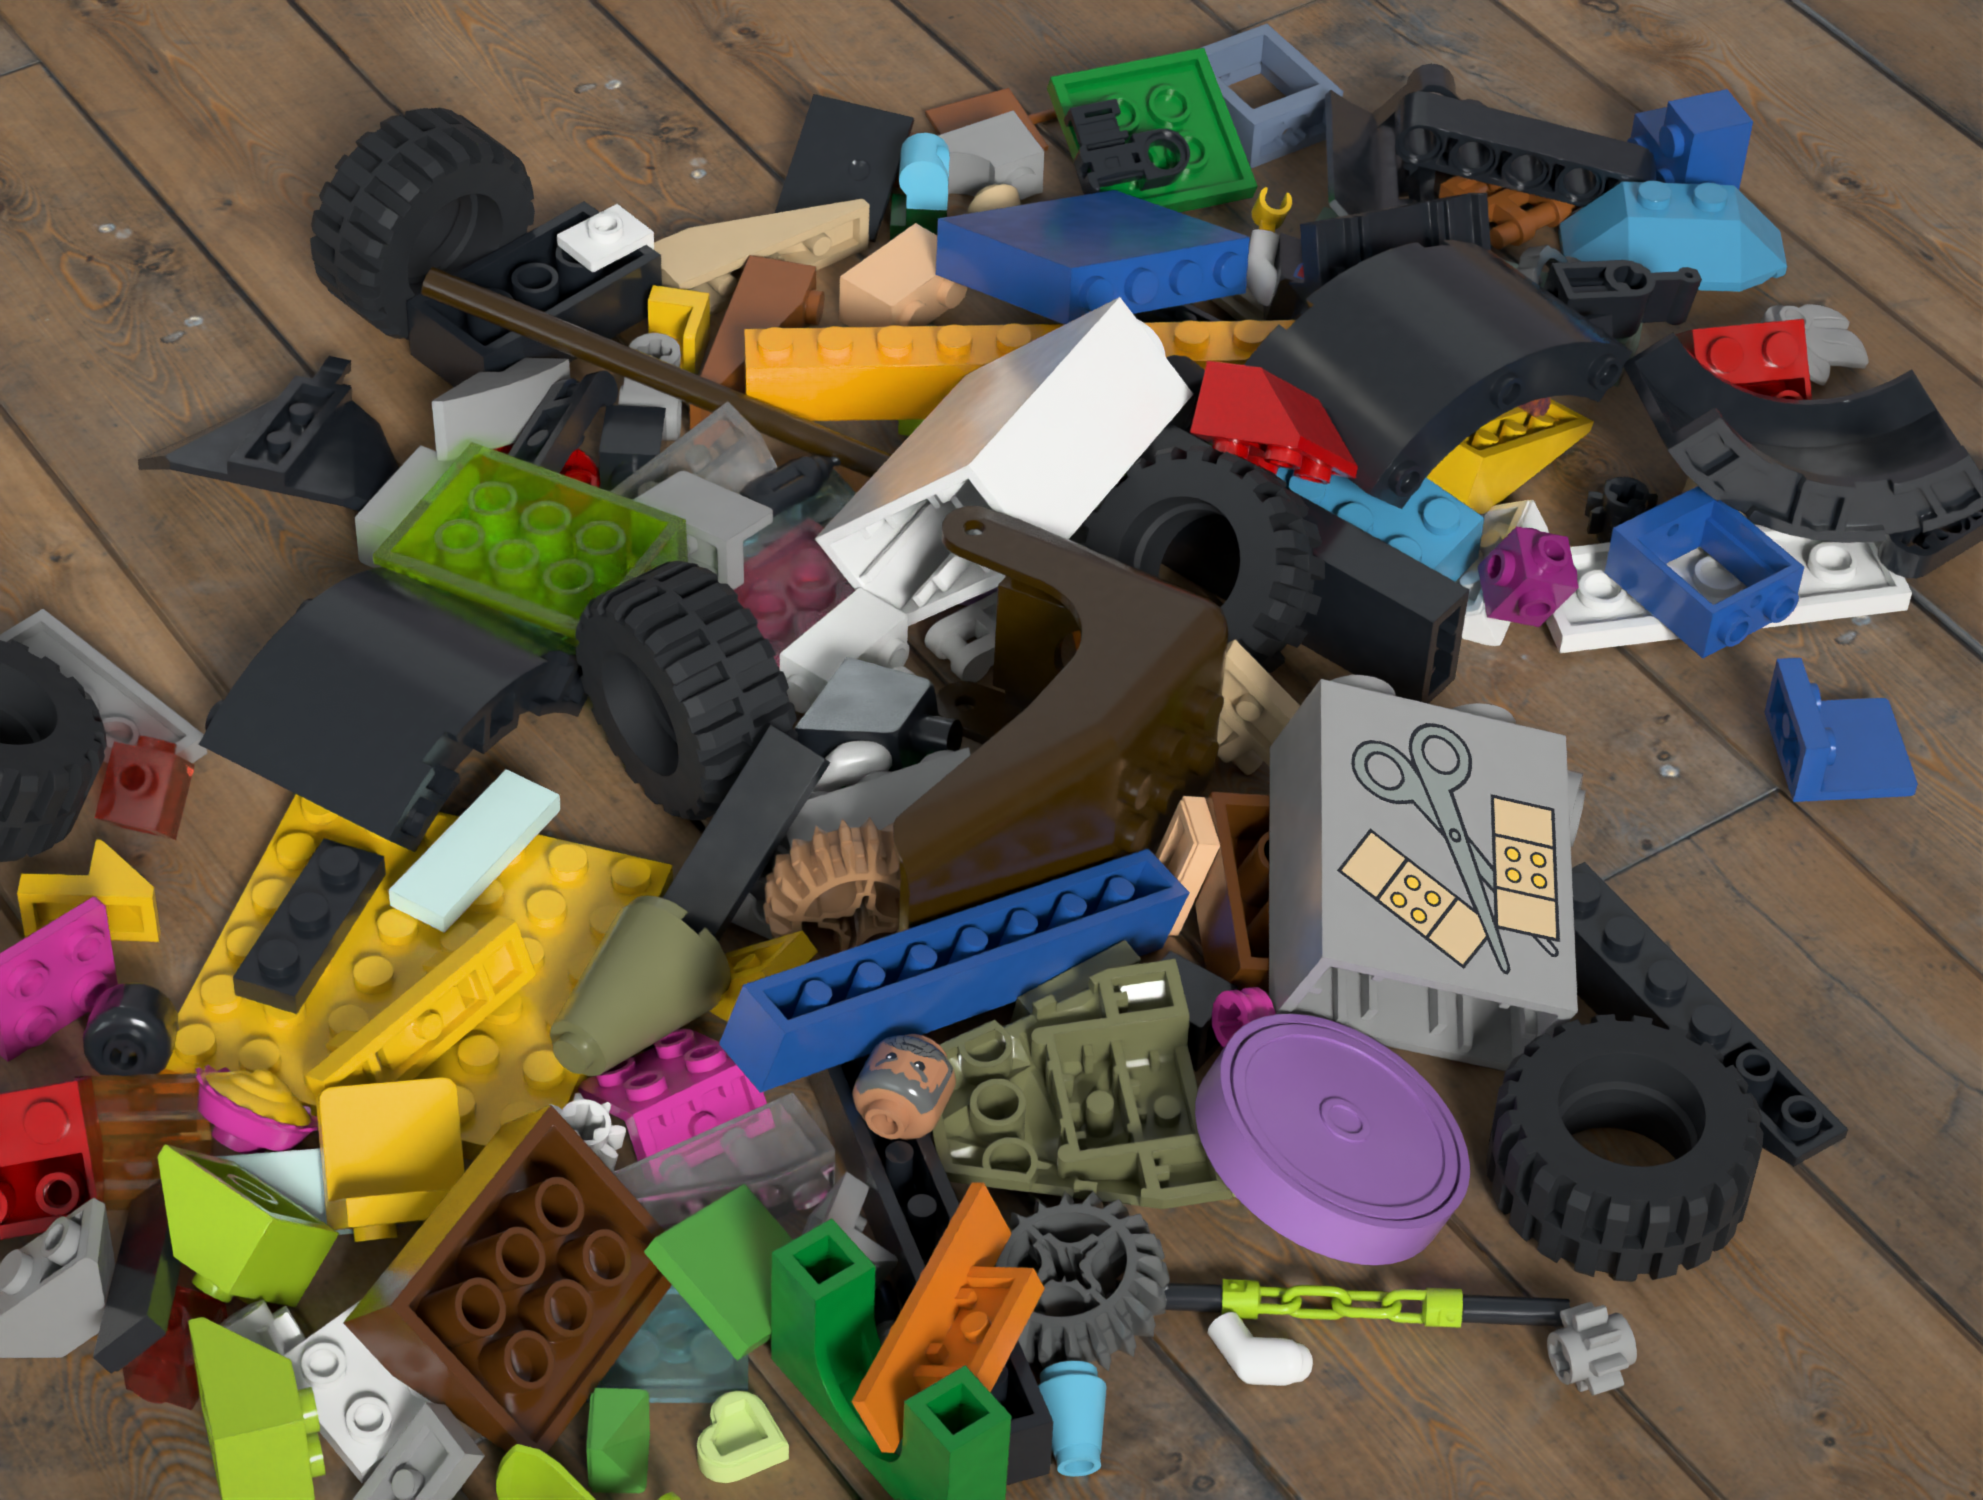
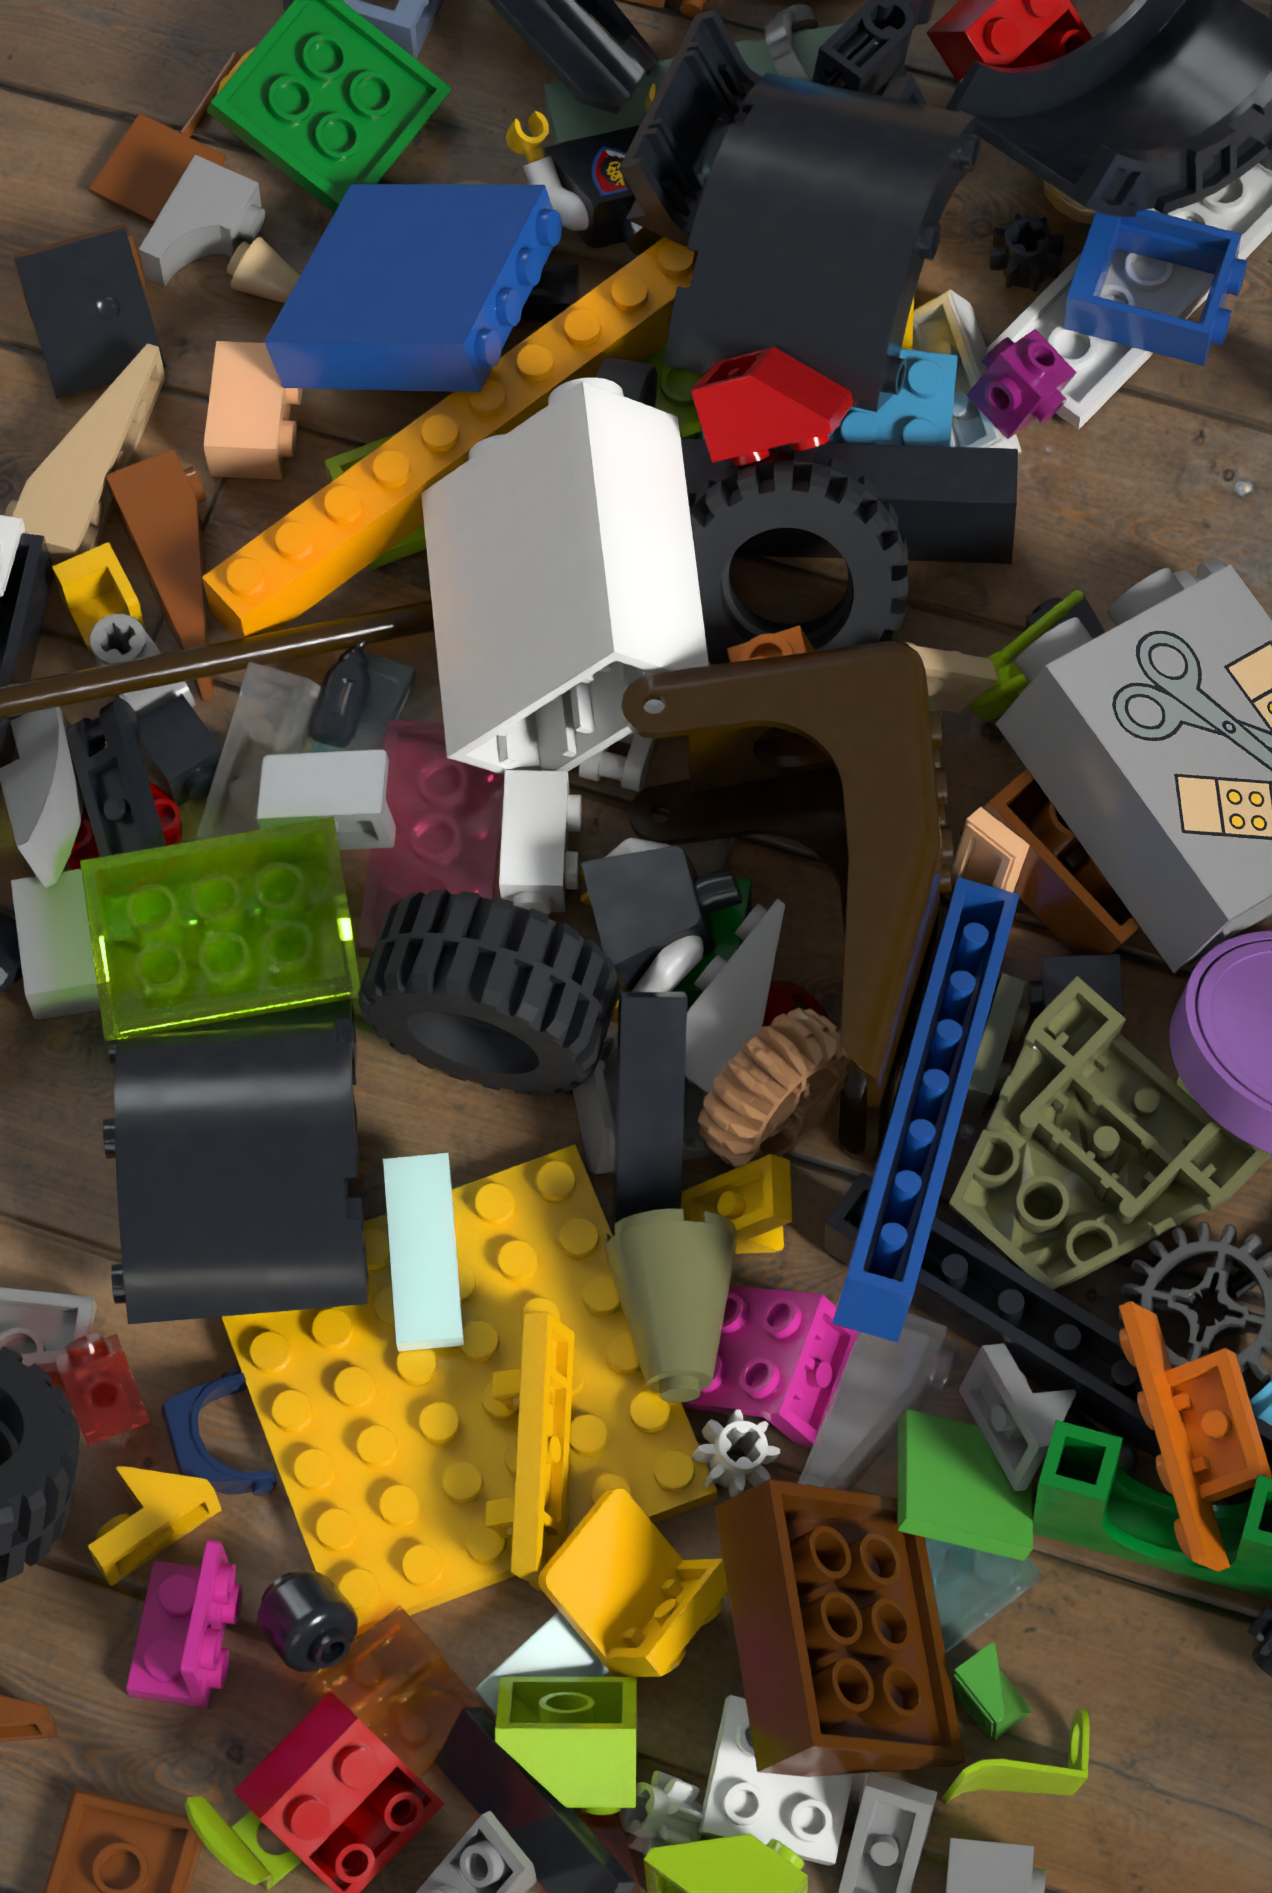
camera: 30 degrees left, 20 degrees up
(188, 854) = (188, 1448): none -> dark blue helmet
(252, 1110) = (475, 1620): piece -> none
(309, 926) = (358, 1419): black plate -> none
(739, 1439) = (1067, 1617): yellowish green tile -> none
(904, 1087) = (981, 1248): nougat head -> none
(924, 182) = (190, 301): medium azure leg -> none
(1111, 159) = (326, 150): black piece -> none
(1237, 1008) = (1147, 998): dark pink bush -> none

